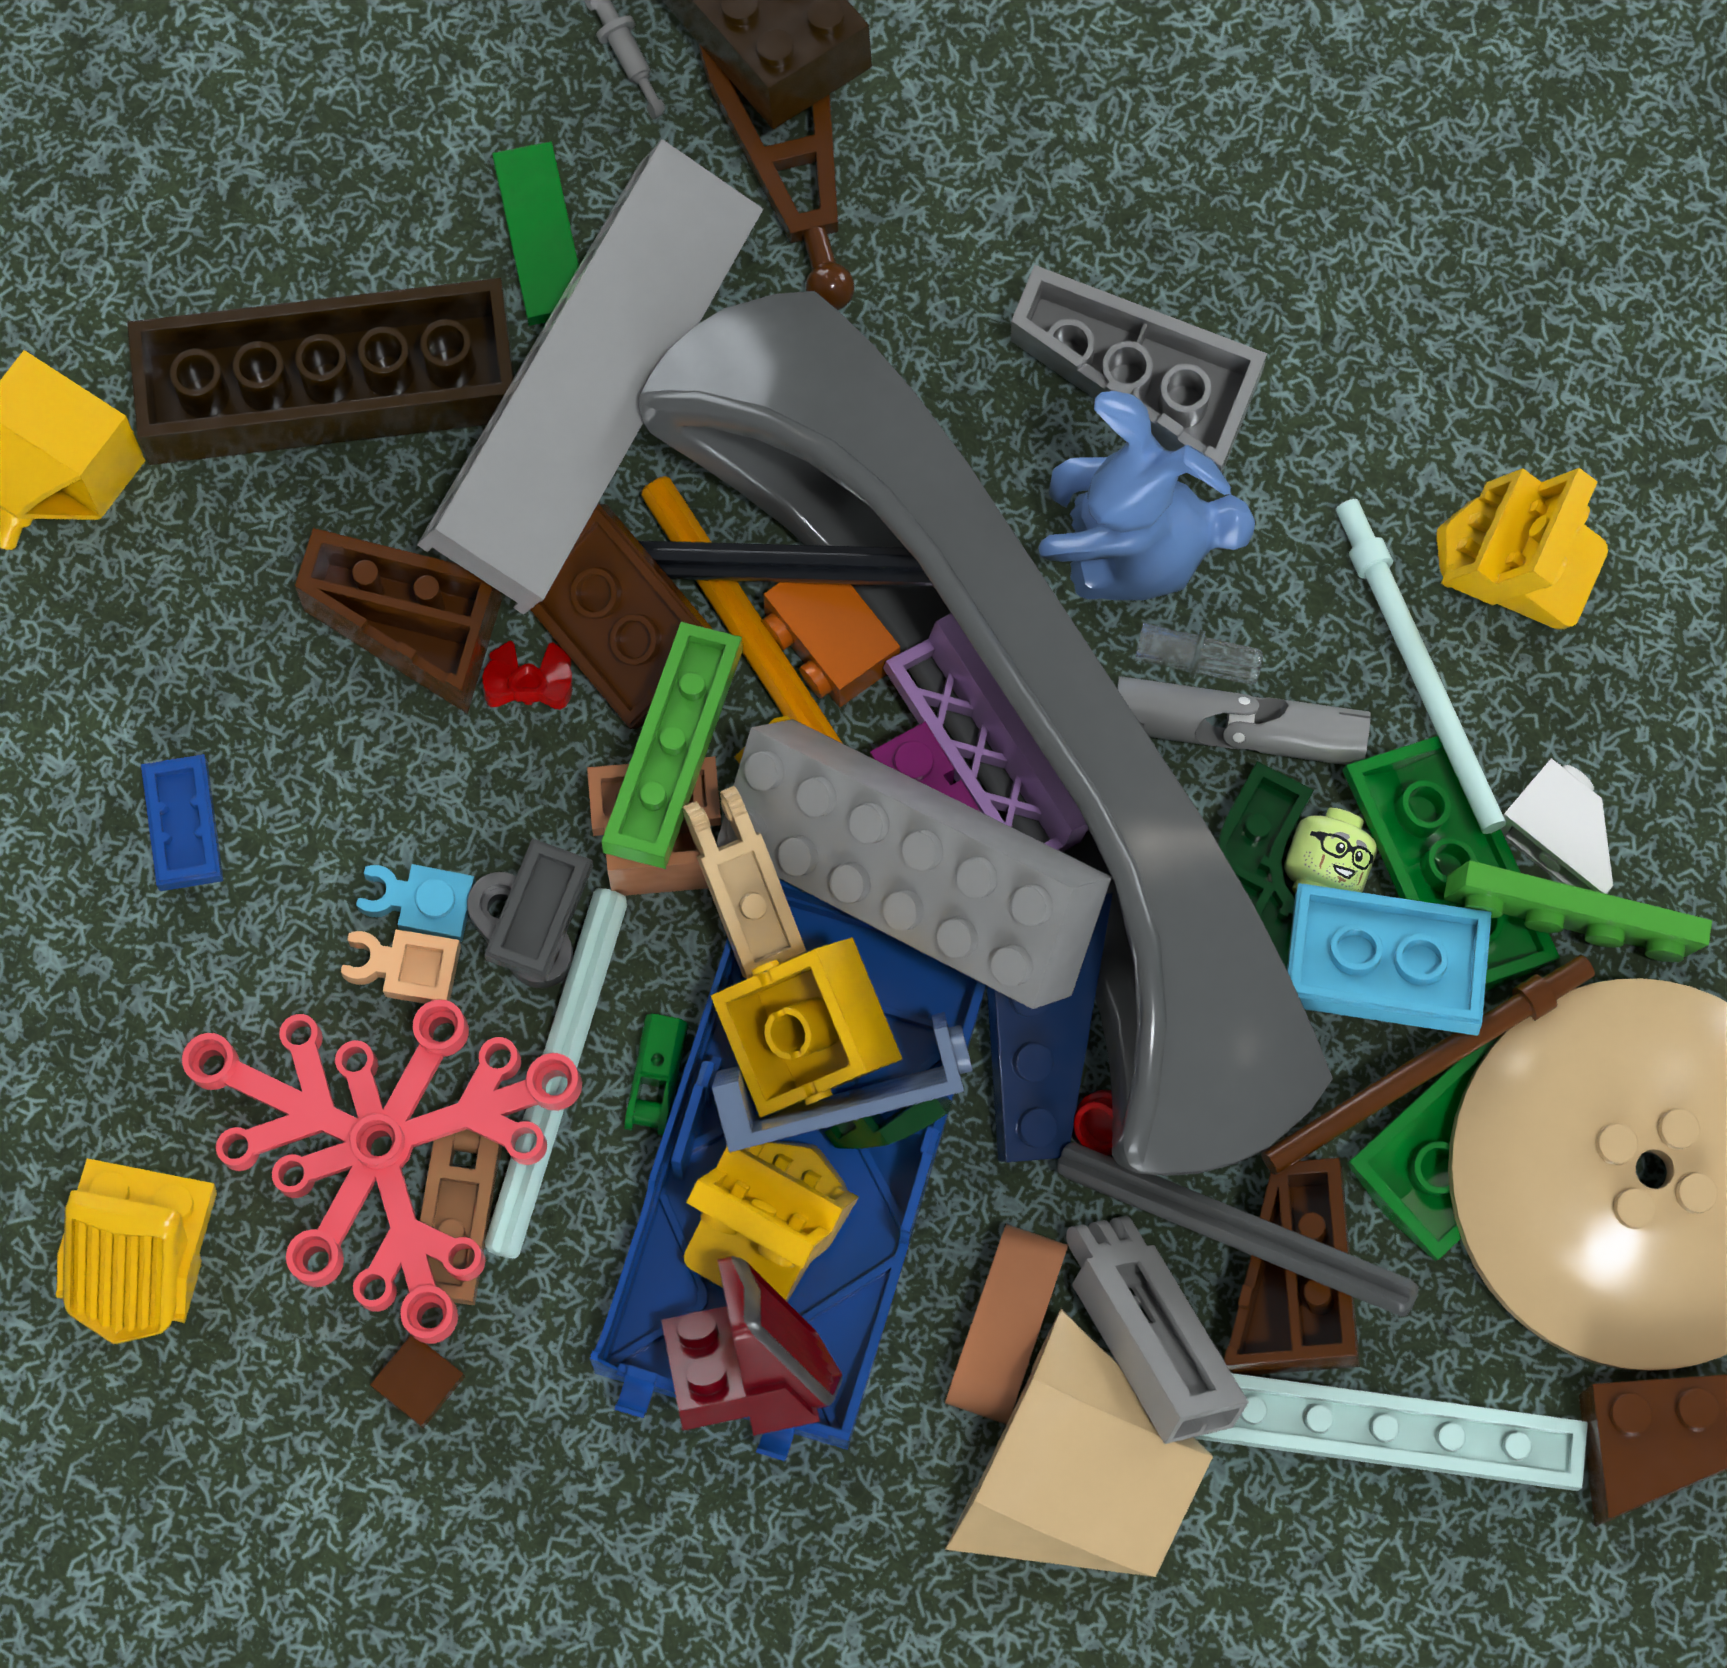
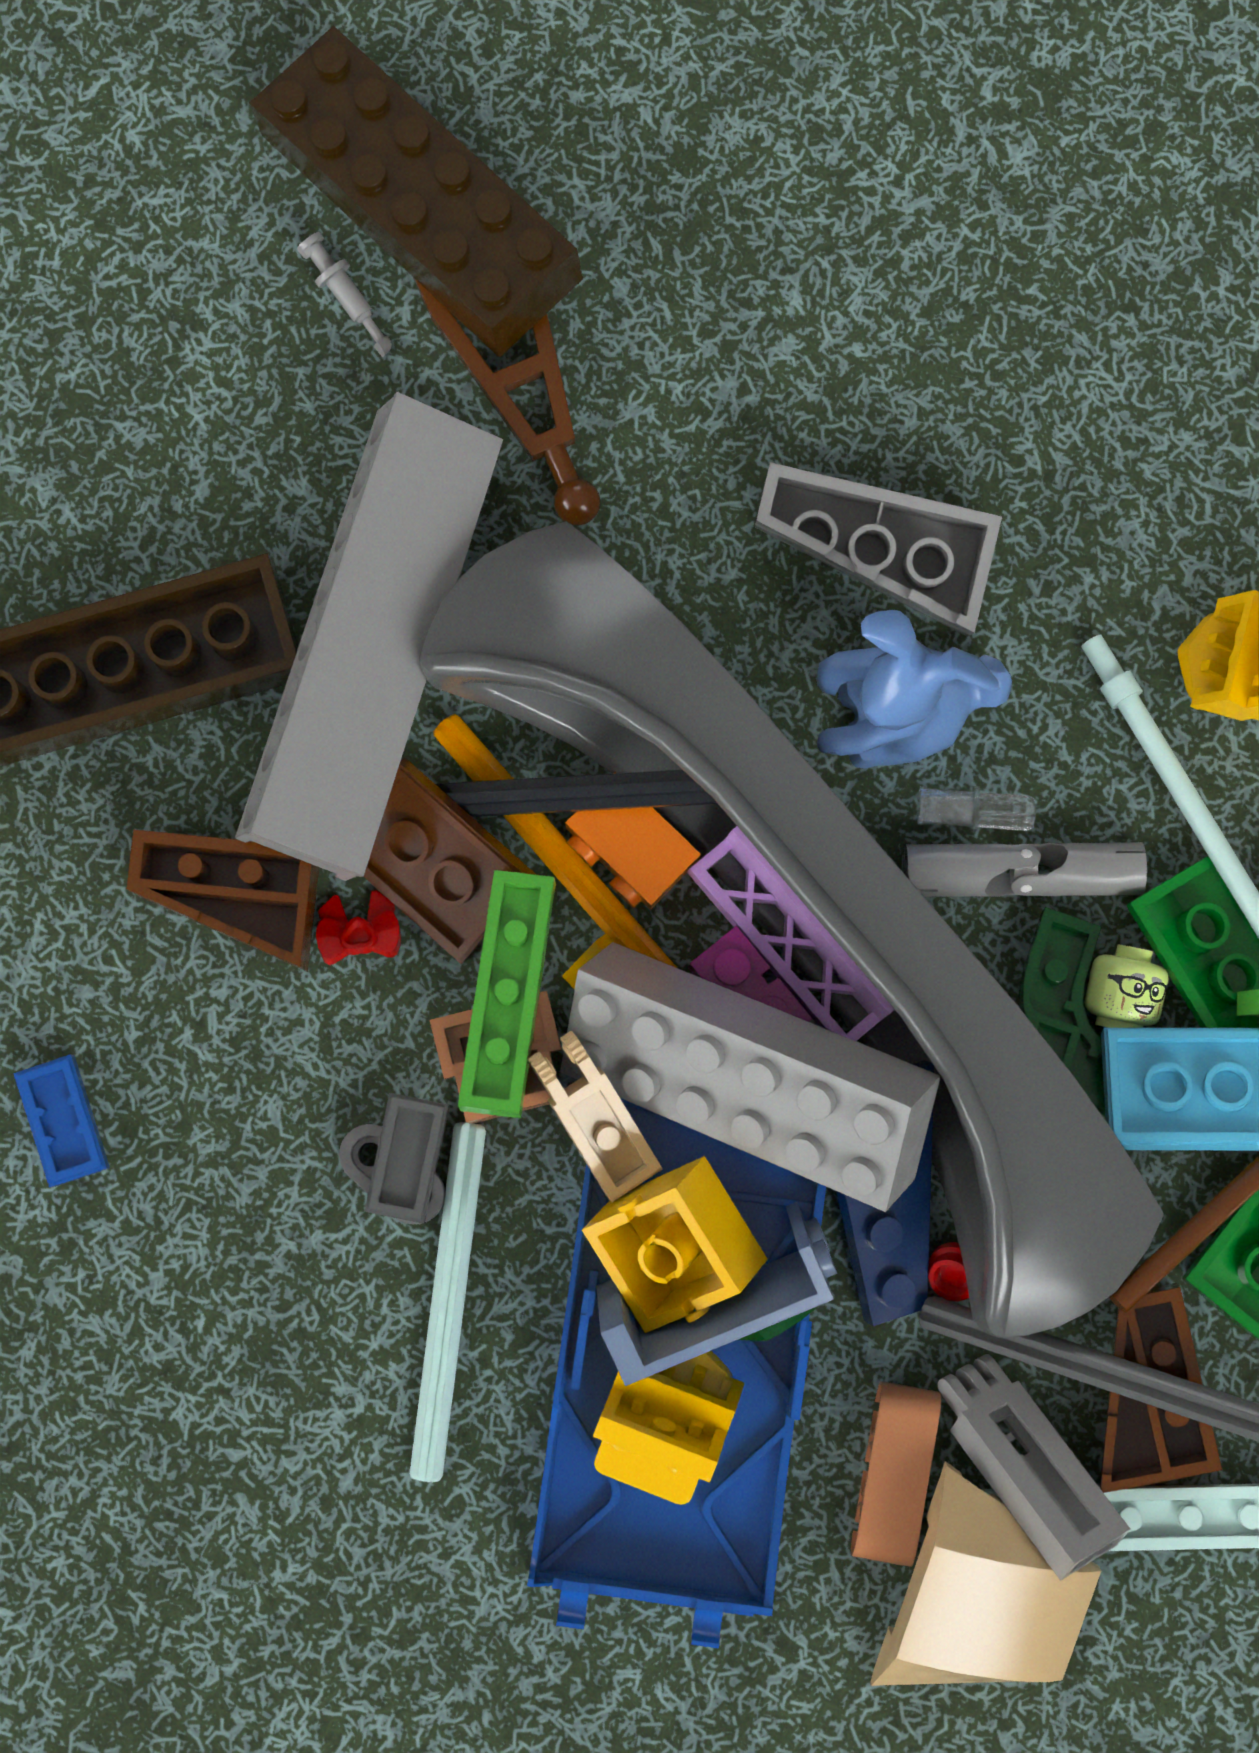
camera: 10 degrees left, 10 degrees up
(131, 1249) = (89, 1531): yellow piece -> none
(313, 1112) = (233, 1378): coral plant -> none
(414, 968) = (301, 1225): light nougat plate -> none
(417, 1381) = (370, 1608): reddish brown tile -> none
(428, 903) = (303, 1158): medium azure plate -> none
(460, 1204) = (378, 1449): medium nougat plate -> none
(537, 226) = (291, 484): green tile -> none
(658, 1066) = (539, 1280): green bar -> none
(749, 1358) = (671, 1564): dark red piece -> none

